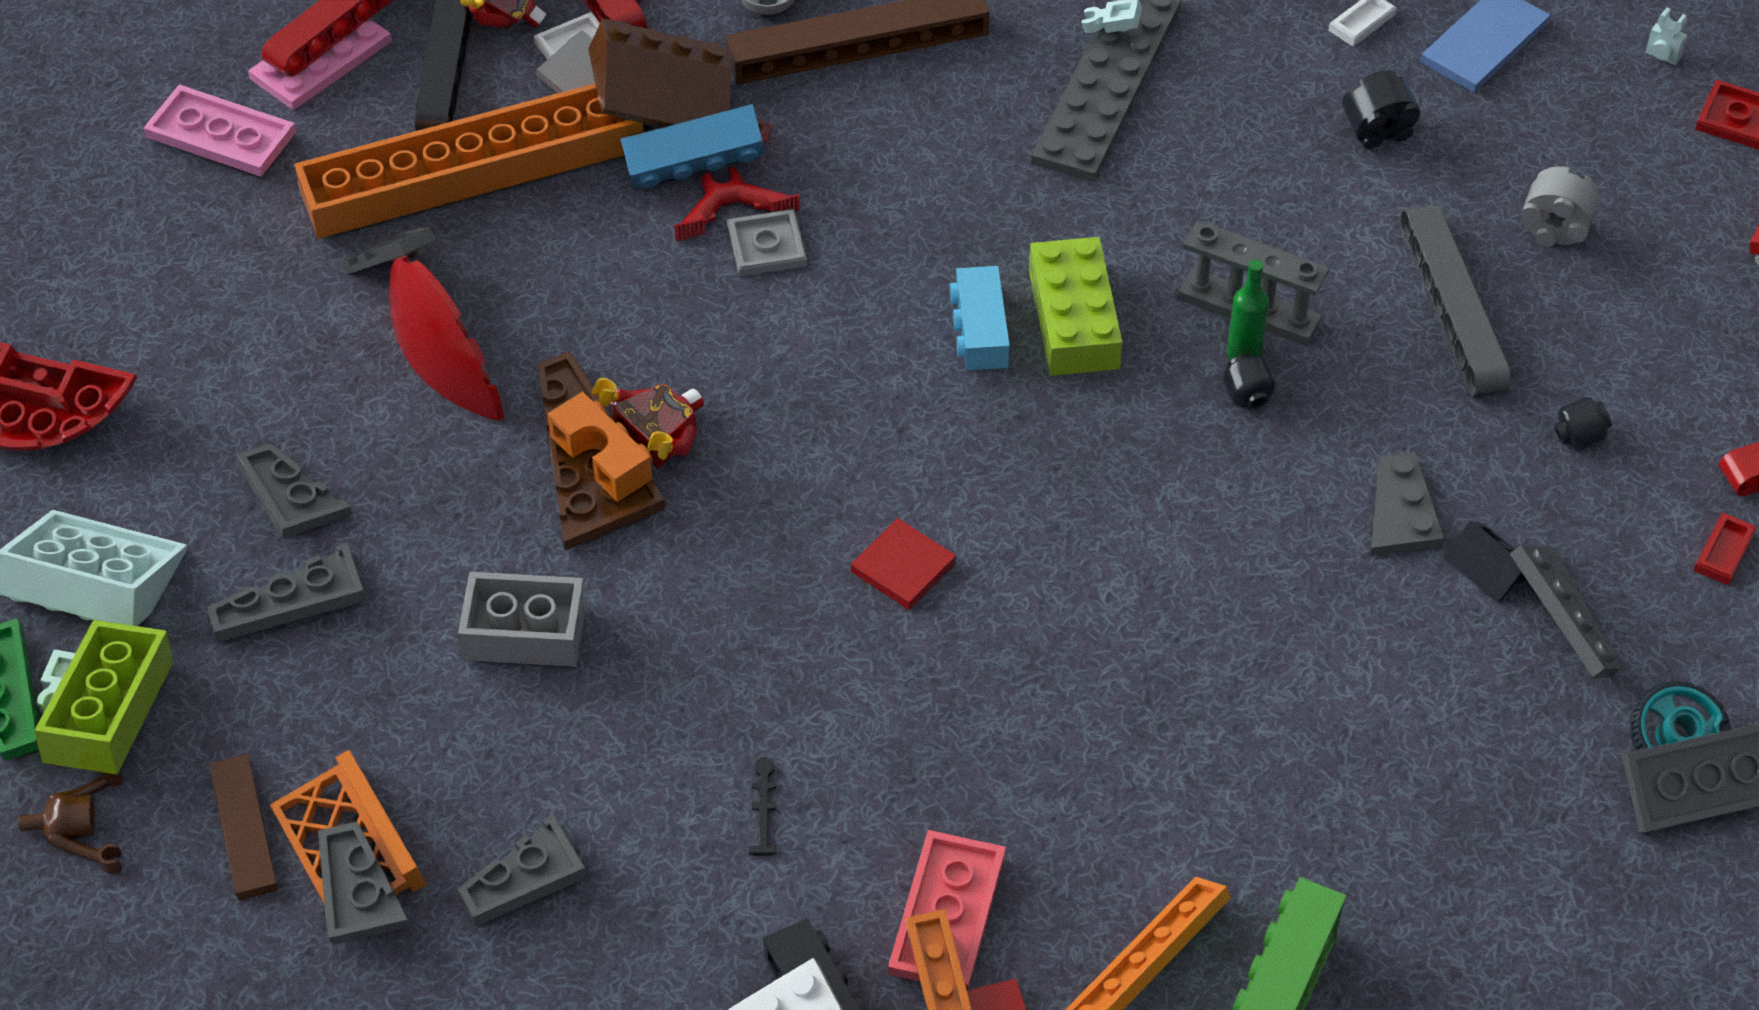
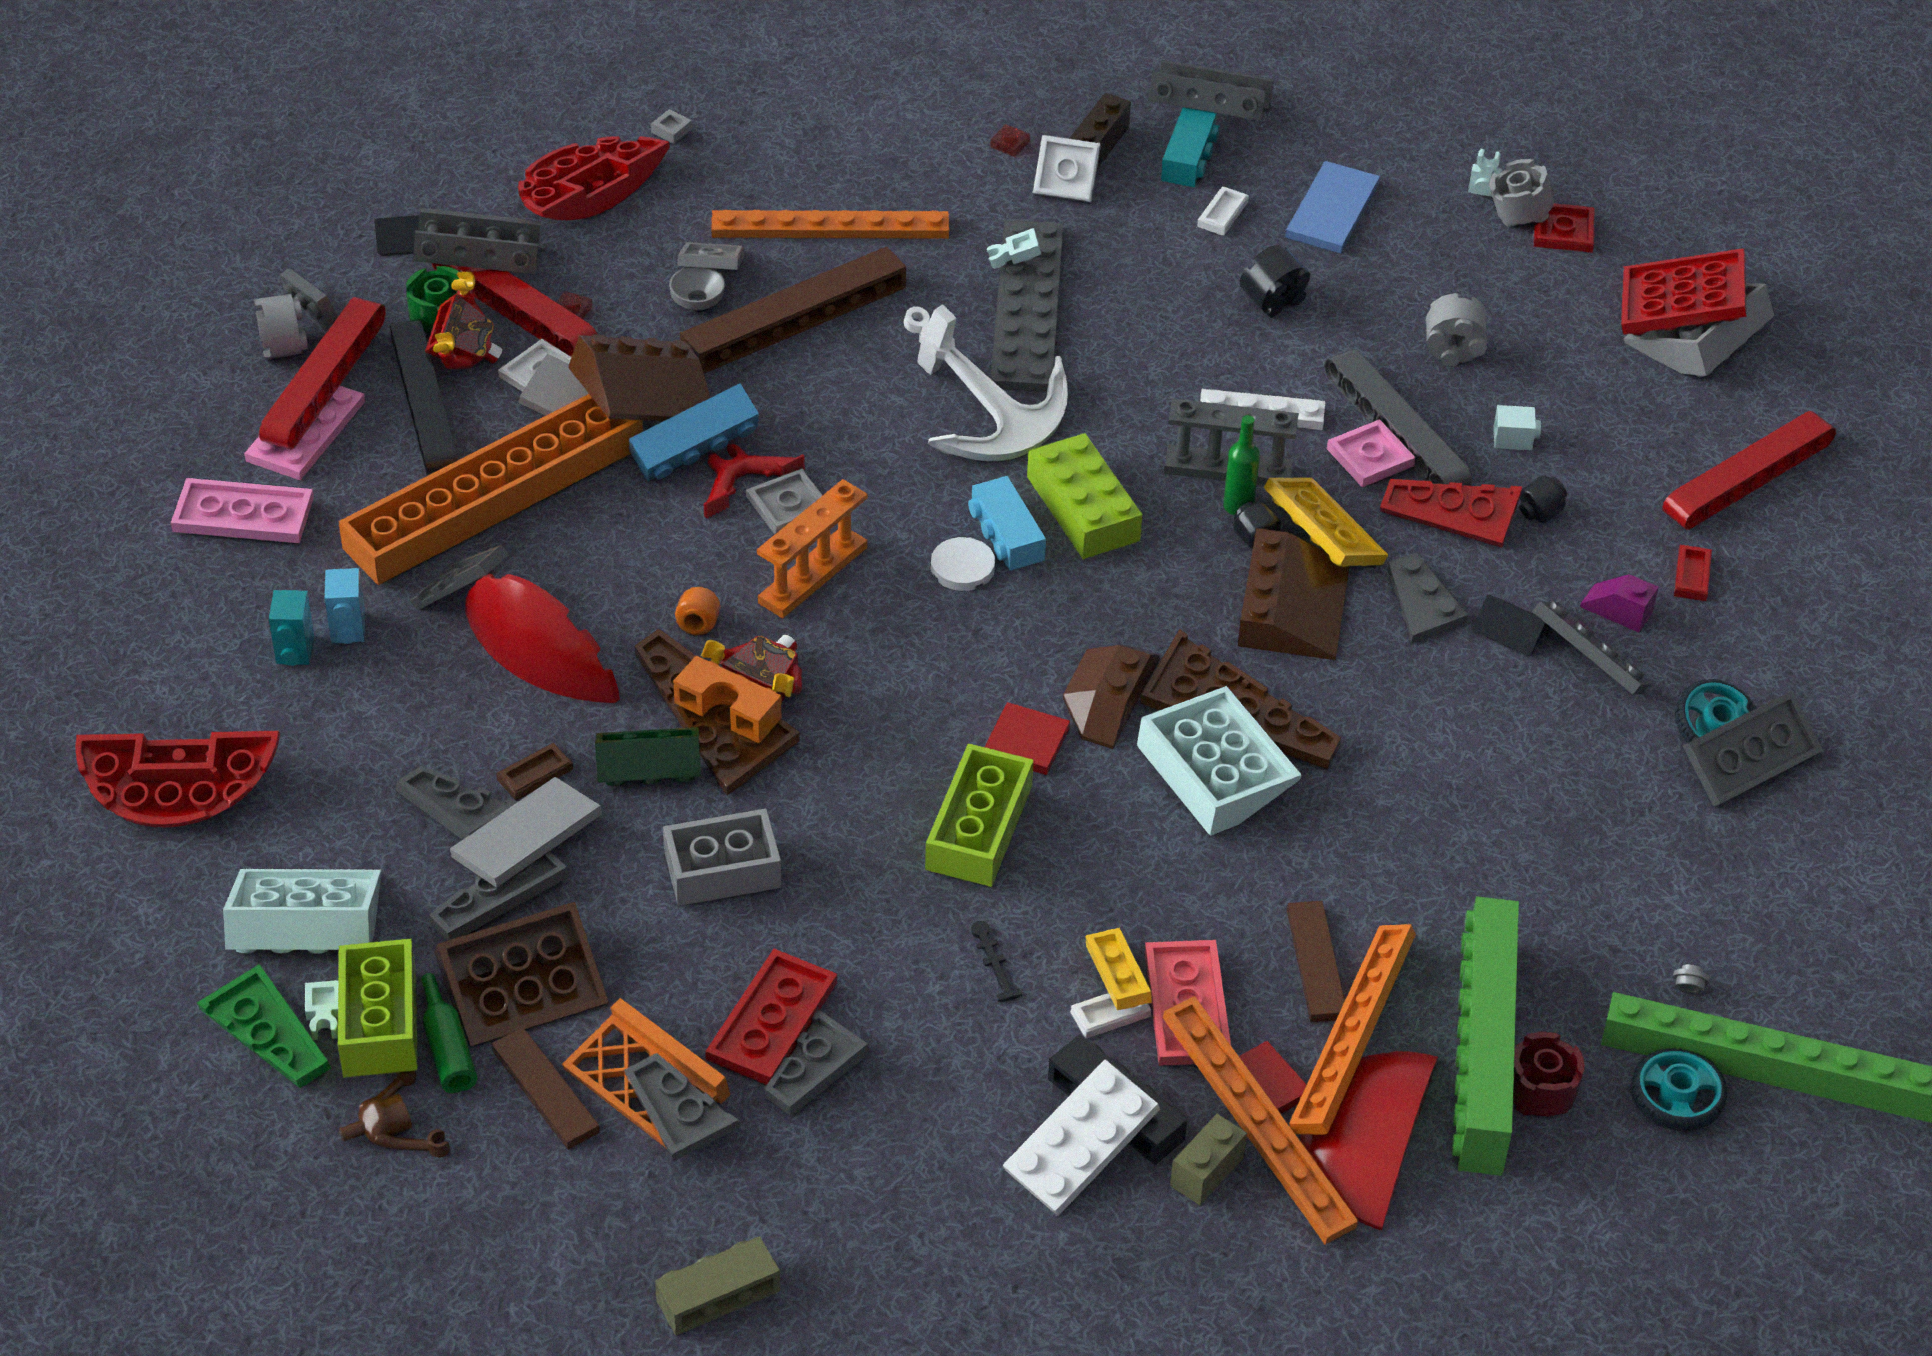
camera: 20 degrees left, 5 degrees down
(165, 748) = (447, 1040): none -> green piece
(203, 265) = (291, 627): none -> teal brick
(265, 254) = (345, 605): none -> medium azure brick
(268, 696) = (521, 974): none -> reddish brown slope
(340, 540) = (525, 831): none -> light grey tile
(383, 476) = (534, 771): none -> reddish brown tile
(496, 488) = (648, 755): none -> dark green brick
(502, 808) = (771, 1016): none -> red plate
(618, 341) = (697, 611): none -> orange head
(767, 319) = (824, 561): none -> orange fence
(809, 639) = (979, 815): none -> lime brick
(862, 897) = (1100, 1015): none -> white tile
(884, 853) = (1118, 969): none -> yellow plate
(918, 351) = (962, 563): none -> white tile
(1012, 530) = (1107, 690): none -> reddish brown wedge
(1041, 211) = (1018, 425): none -> white piece
(1091, 638) = (1216, 758): none -> light aqua slope
(1110, 897) = (1316, 960): none -> reddish brown tile
(1135, 572) = (1192, 671): none -> reddish brown wing
(1255, 472) = (1292, 597): none -> reddish brown slope
(1325, 395) = (1325, 522): none -> yellow plate
(1343, 259) = (1310, 411): none -> white plate
(1411, 327) = (1371, 453): none -> bright pink plate
(1488, 416) = (1468, 511): none -> red wing
(1586, 334) = (1515, 427): none -> light aqua brick
(1627, 564) = (1623, 601): none -> magenta slope
(1699, 66) = (1522, 193): none -> light grey brick

